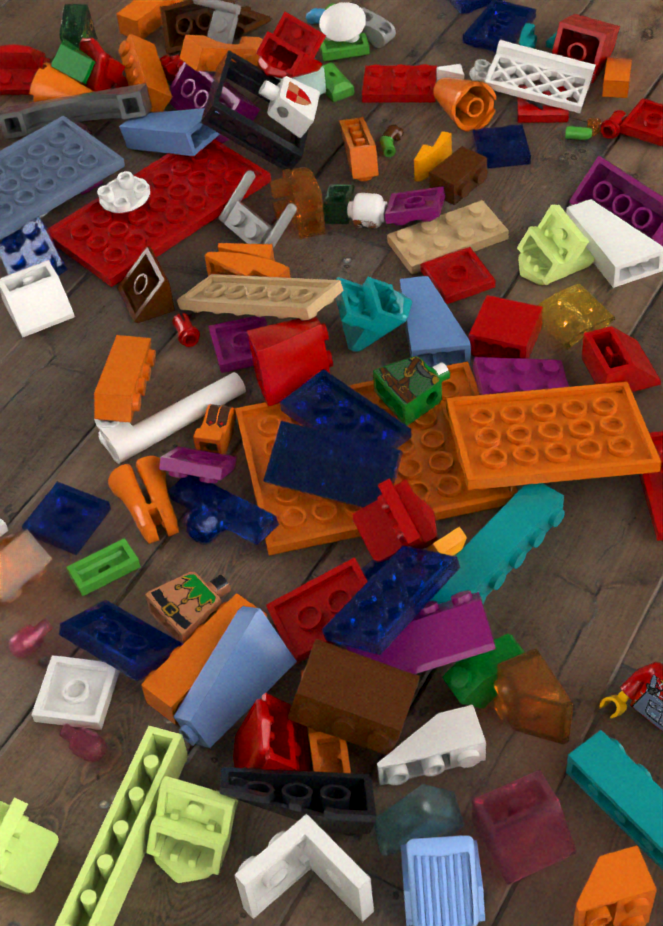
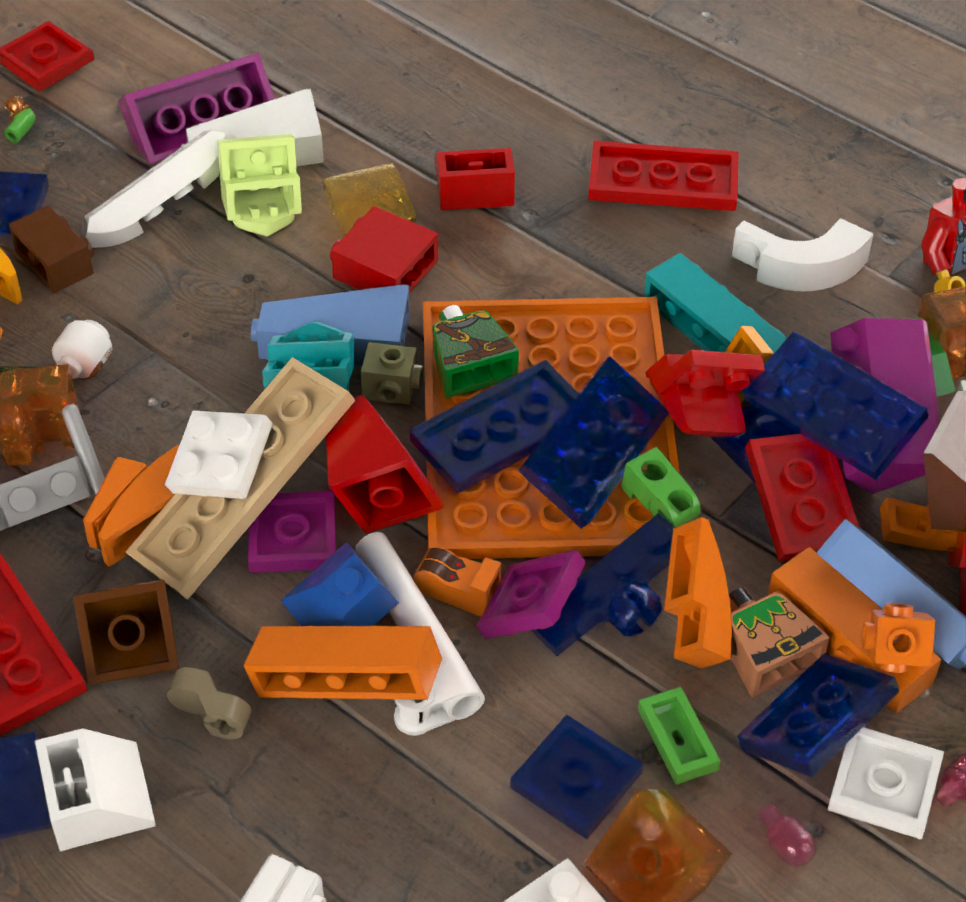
camera: 85 degrees left, 0 degrees up
(102, 335) = (221, 712): none -> dark tan piece
(146, 516) = (564, 672): orange piece -> none
(165, 663) = (911, 648): none -> orange brick
(182, 373) = (340, 593): none -> blue slope
(187, 333) = (236, 597): red pin -> none
(203, 549) = (698, 596): none -> orange slope
(266, 276) = (219, 454): none -> white plate
(300, 515) = (660, 488): none -> bright green leg
(386, 350) = (390, 373): none -> olive brick
(415, 205) = (102, 294): magenta plate -> none
(458, 275) = (247, 282): red plate -> none
(462, 228) = (163, 288): tan plate -> none
(512, 199) = (118, 216): none -> white brick
(517, 374) = (475, 262): magenta plate -> none
(550, 435) = (588, 246): orange plate -> none
(604, 603) = (804, 264): none -> white arch
(611, 127) = (31, 91): red pin -> none

